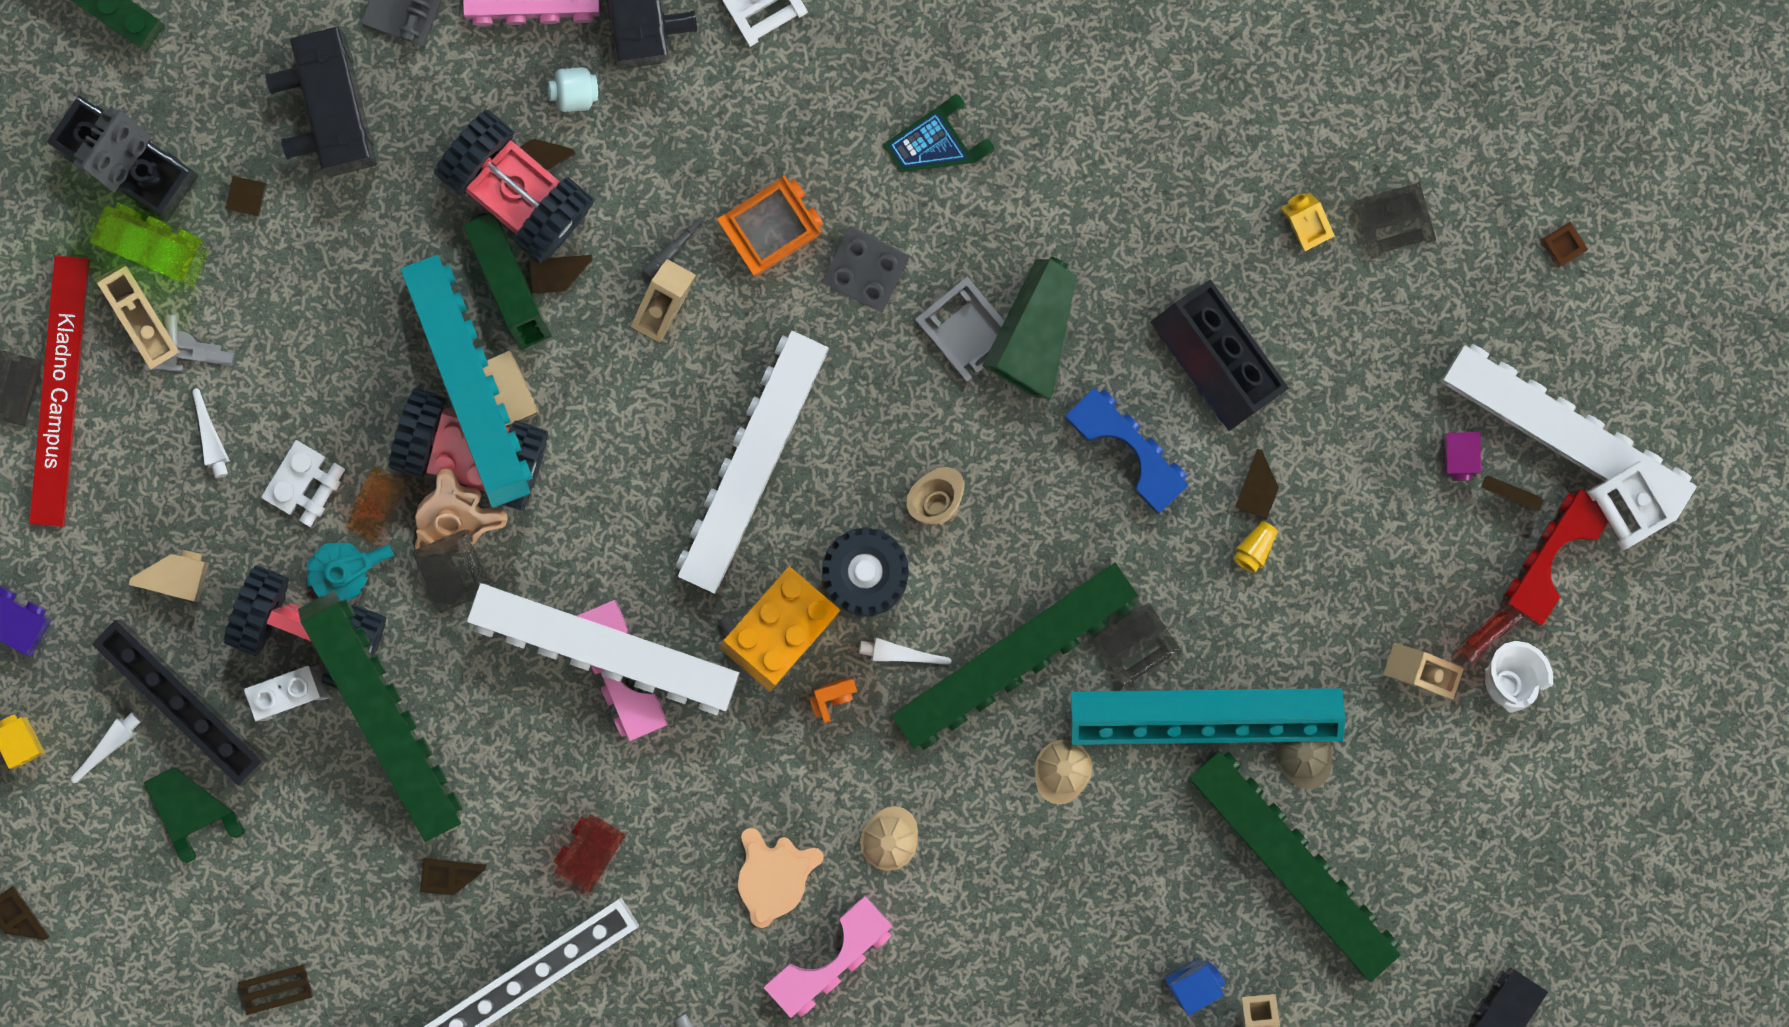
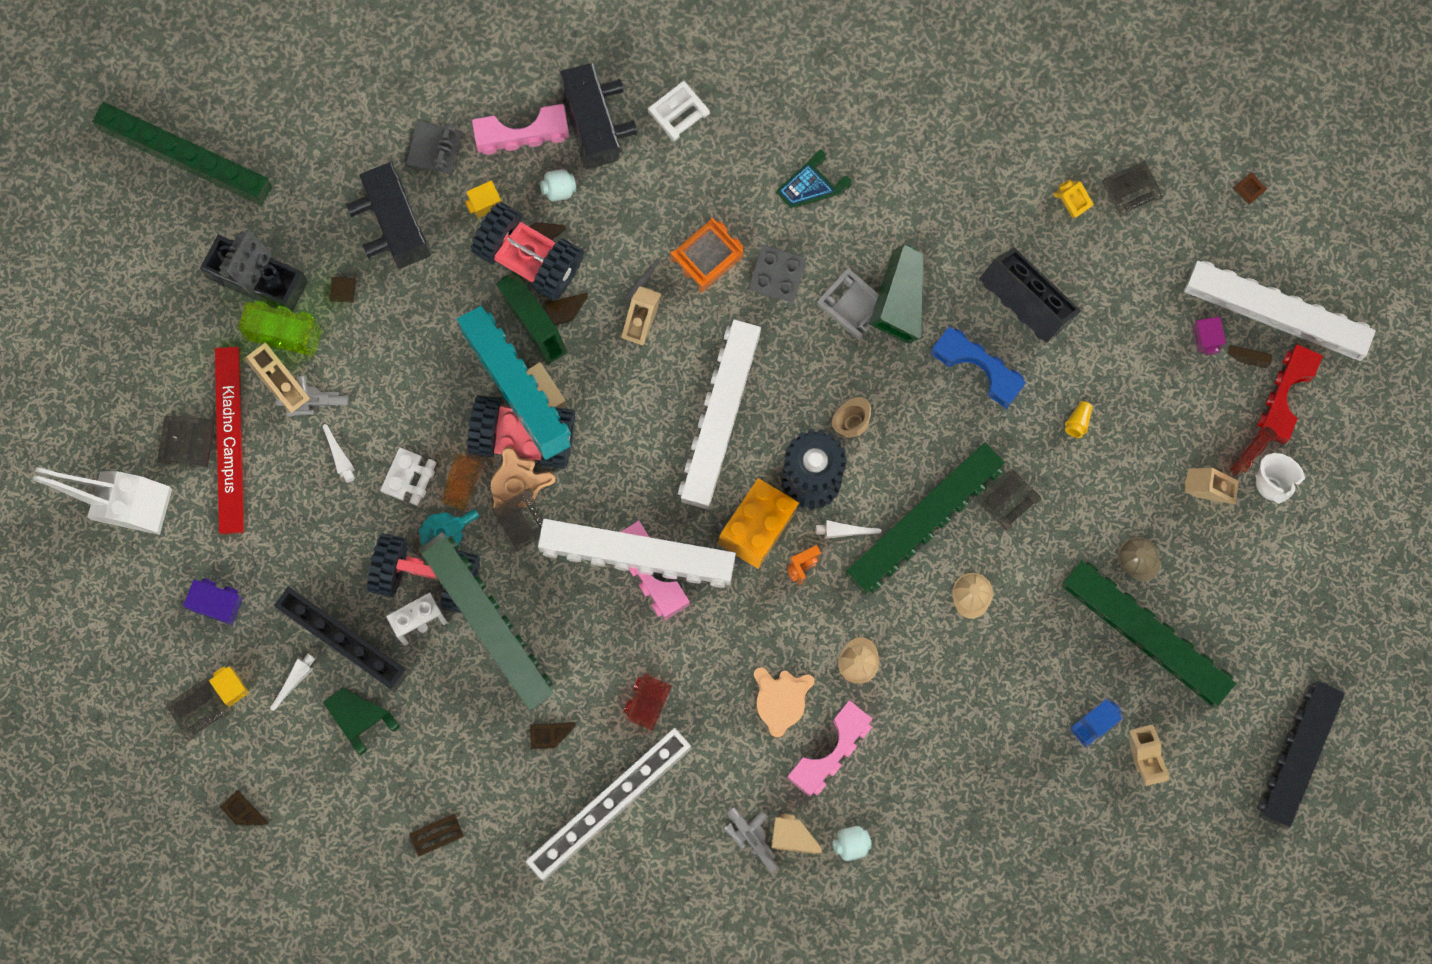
camera: 10 degrees left, 10 degrees down
(175, 576) = (326, 553): tan slope -> none
(463, 95) = (482, 199): none -> yellow brick
(1207, 716) = (1067, 538): teal brick -> none
(1258, 488) = (1073, 380): dark brown tile -> none
(1642, 500) = (1341, 343): white plate -> none

